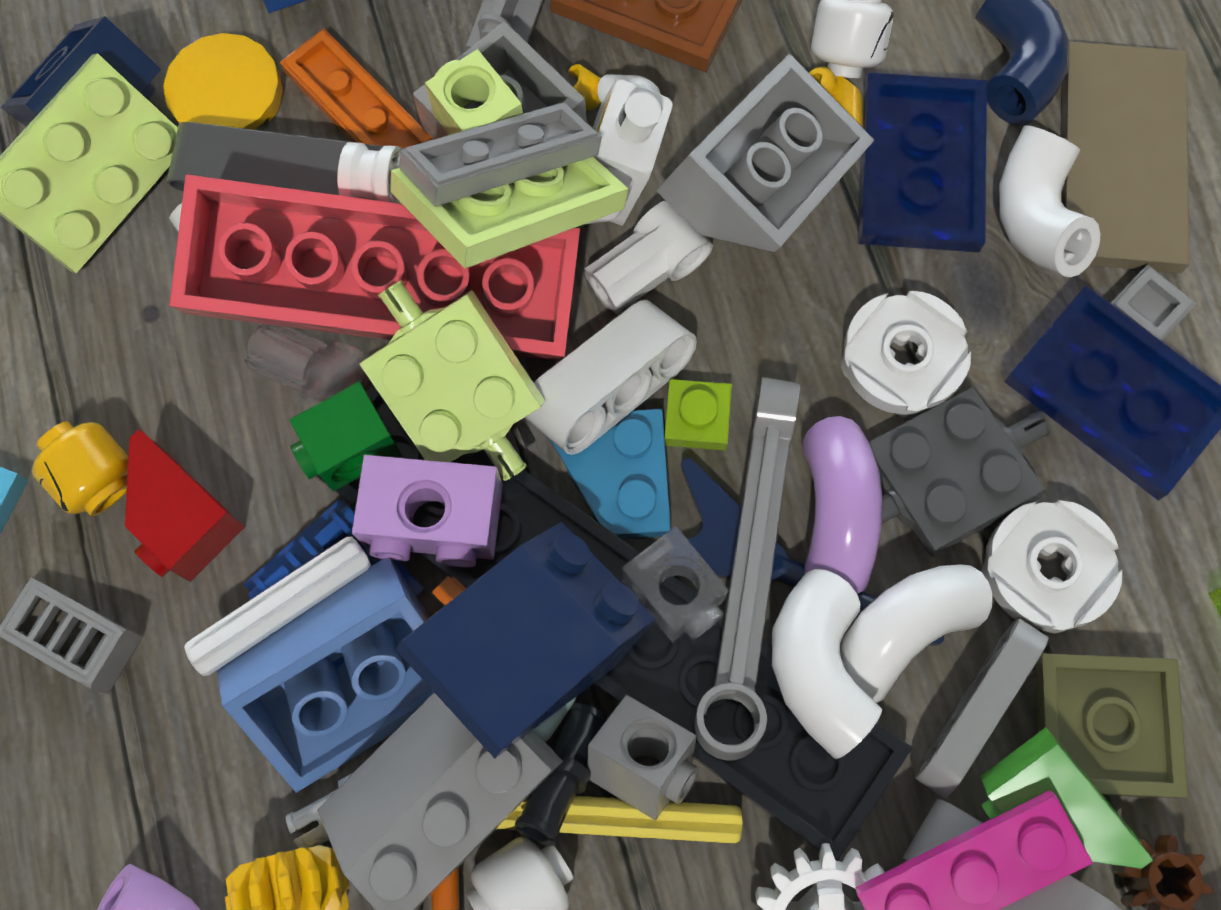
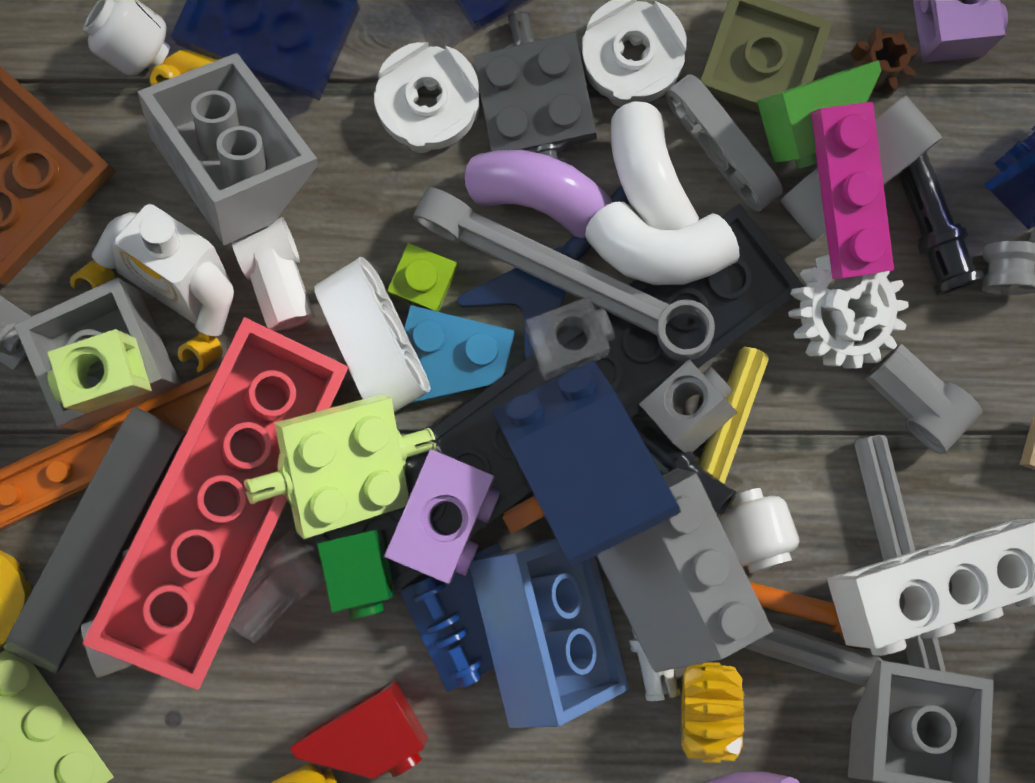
camera: 75 degrees left, 10 degrees up
(277, 606) = (483, 664): white axle -> none
(367, 172) = (129, 482): white wheel -> none
(498, 153) = (157, 362): light grey tile -> none
(517, 212) = (194, 366): yellowish green plate -> none

